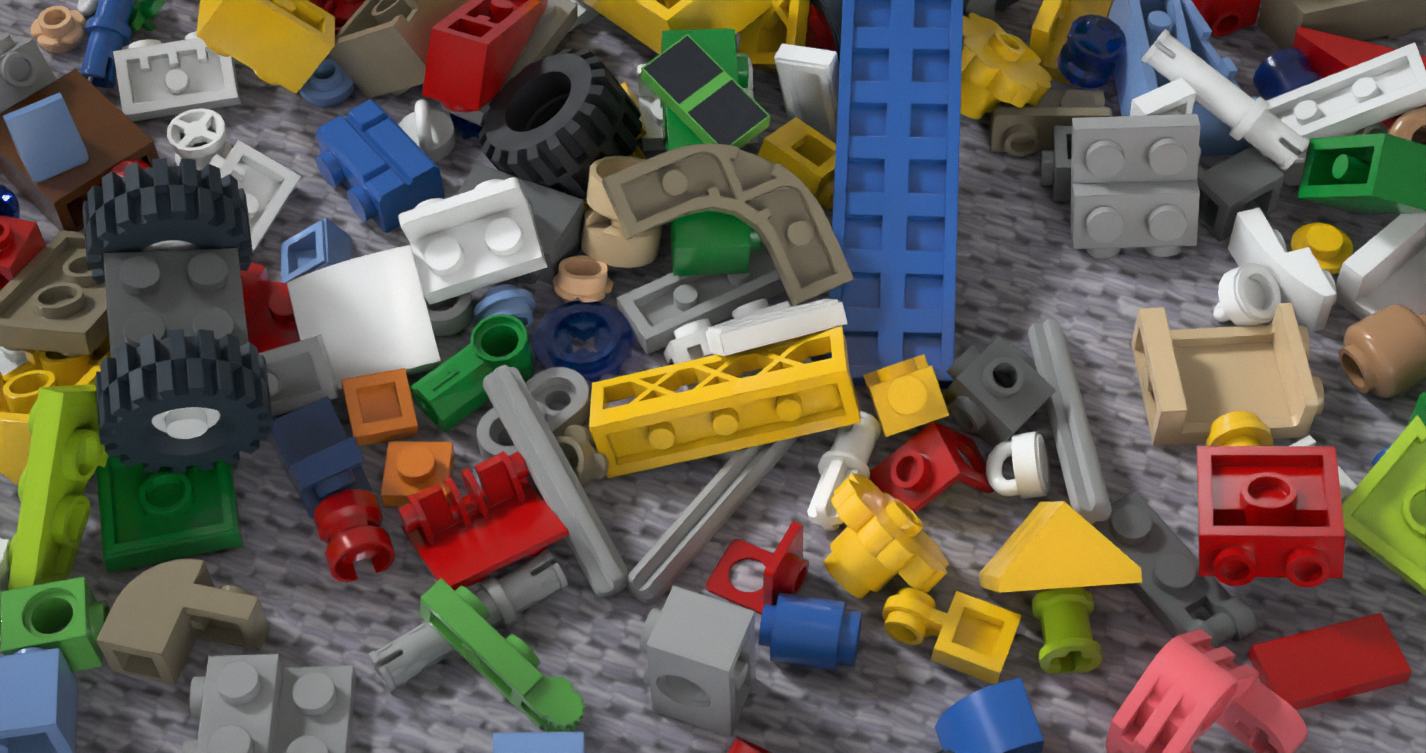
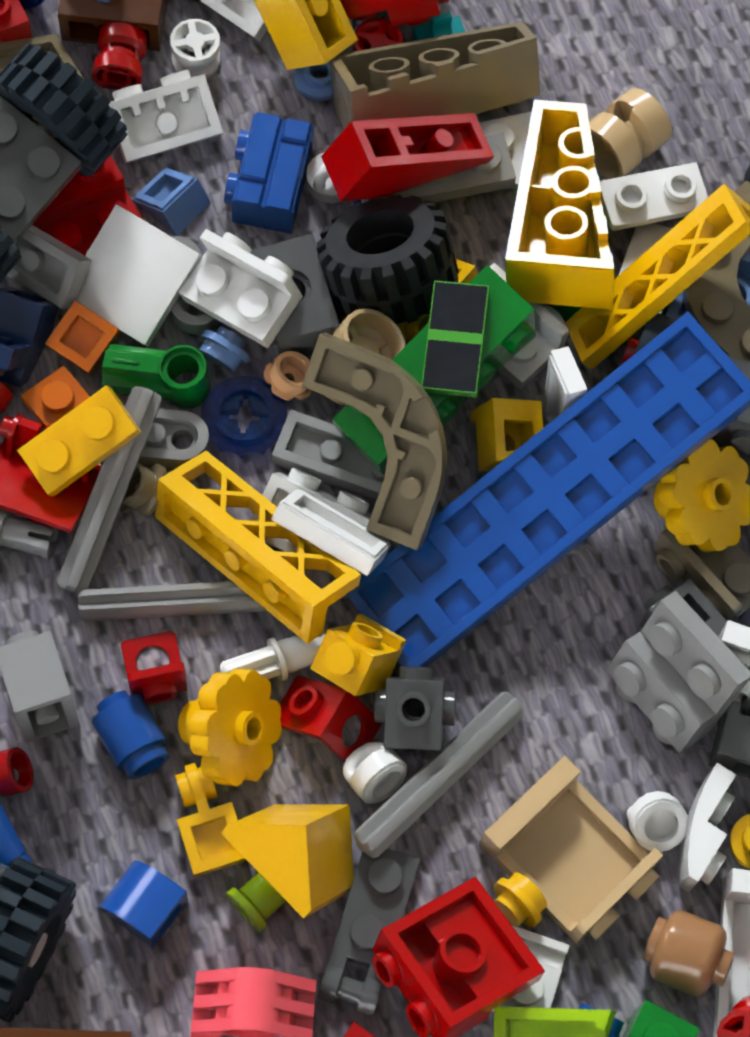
camera: 40 degrees right, 15 degrees up
(492, 455) = (79, 441): none -> yellow plate

